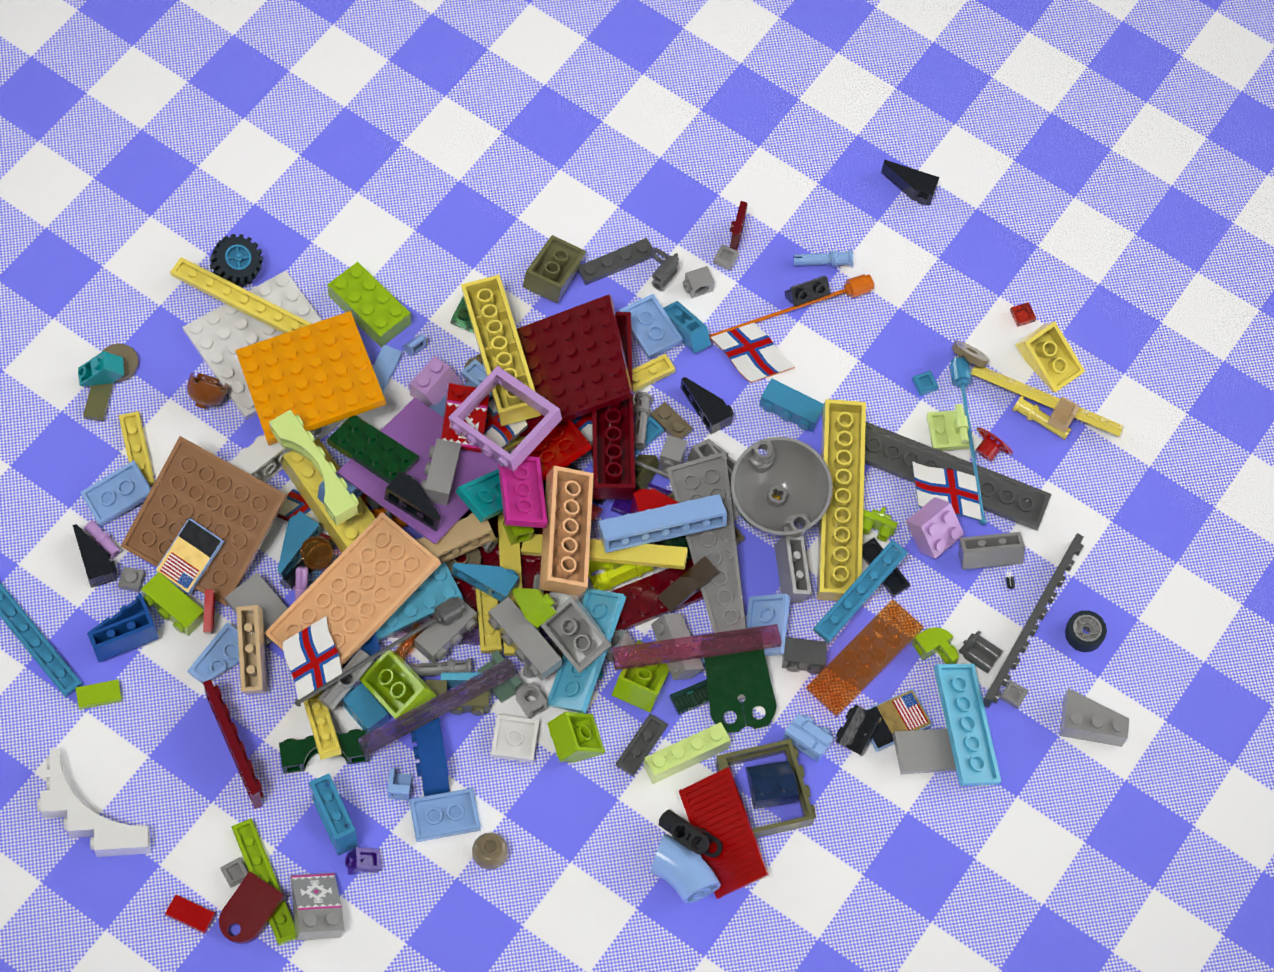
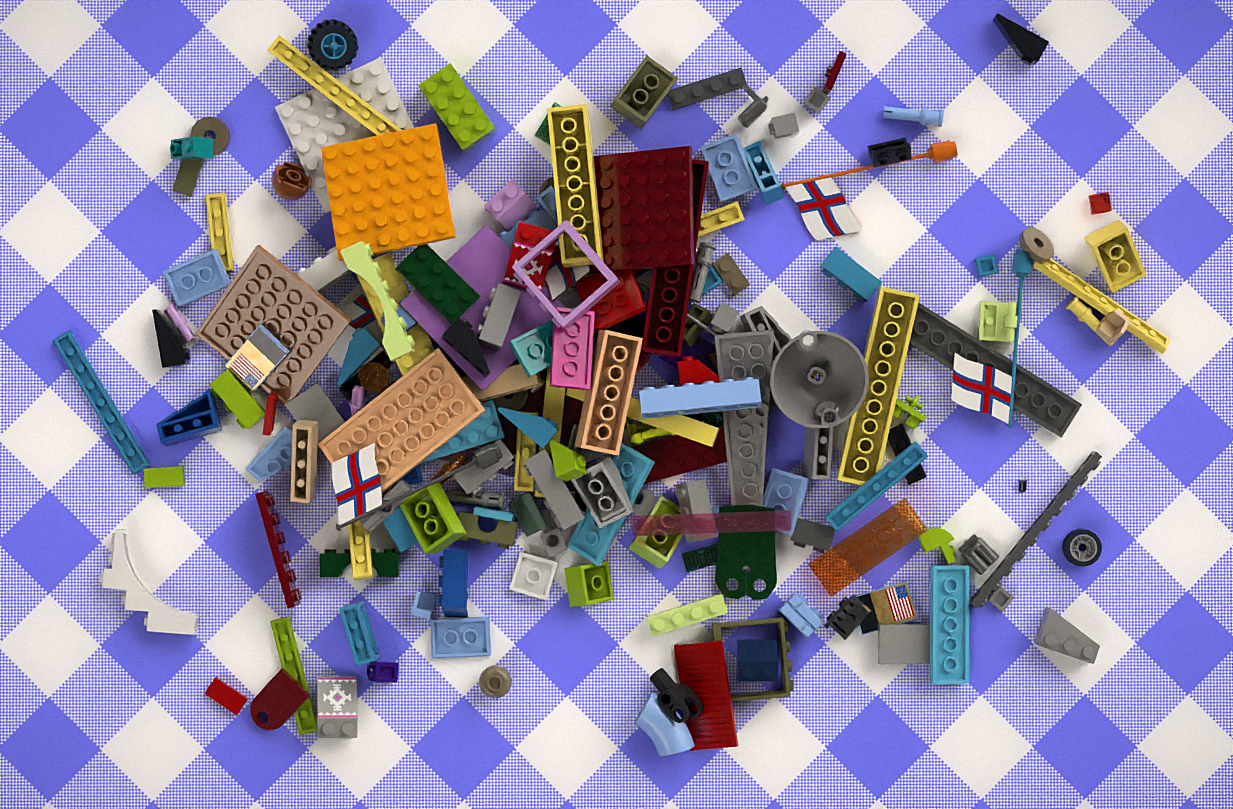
camera: 10 degrees right, 25 degrees up
(131, 579) = (203, 366): light grey plate -> none
(234, 872) = (269, 663): light grey tile -> none
(386, 365) = (462, 179): light blue tile -> none
(415, 345) = (495, 155): light blue slope -> none
(436, 707) = (465, 544): clear purple tile -> none
(641, 745) = (648, 597): dark grey tile -> none
(688, 584) = (715, 455): dark brown tile -> none
(708, 406) = (770, 266): black slope -> none
(935, 527) = (961, 428): lavender piece -> none
(989, 447) = (1032, 347): red wheel -> none
(991, 550) = (1010, 456): light grey brick -> none

